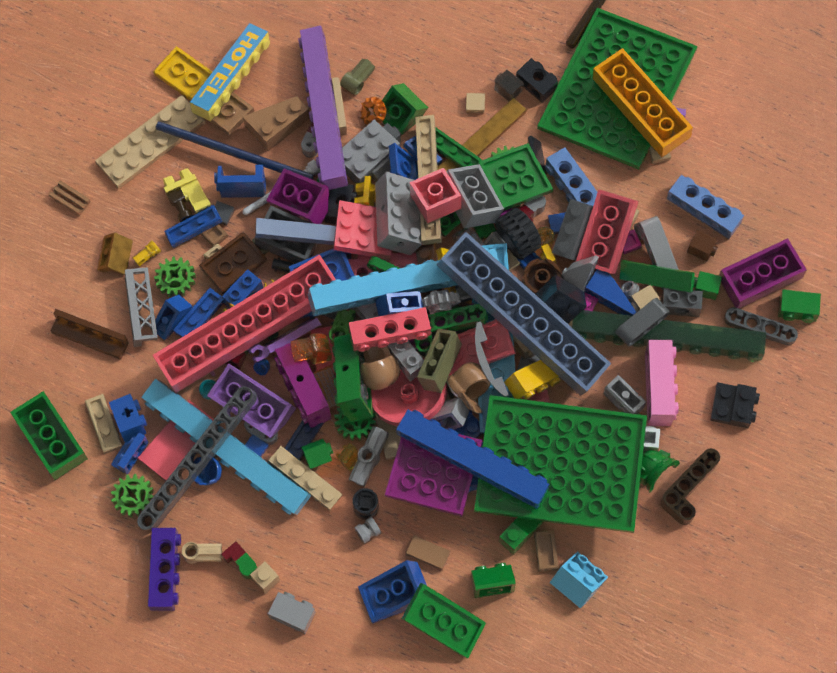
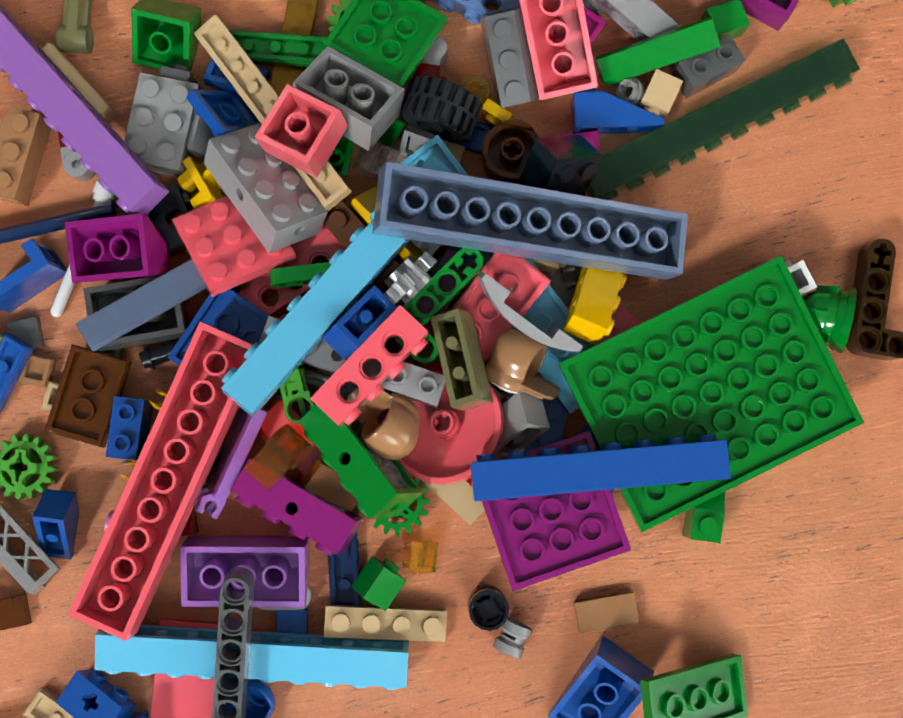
camera: 40 degrees left, 15 degrees up
(200, 313) = (92, 496): blue plate -> none
(205, 387) = (172, 587): teal tile -> none
(262, 367) = (229, 512): blue hinge -> none
(363, 467) = (450, 558): light grey piece -> none
(379, 109) = (137, 53): orange gear -> none
(493, 580) = (717, 598): green slope -> none
(546, 550) = (751, 510): medium nougat tile -> none
(555, 222) = (475, 59): blue tile -> none
(578, 579) = (819, 521): medium azure slope -> none
(580, 272) = (556, 111): light grey slope -> none
(624, 396) = (722, 244): light grey brick -> none
(642, 322) = (684, 127): dark grey beam -> none
(660, 383) = (756, 194): bright pink brick -> none
(734, 404) = (858, 160): black plate -> none
(761, 322) = (821, 29): dark grey beam -> none

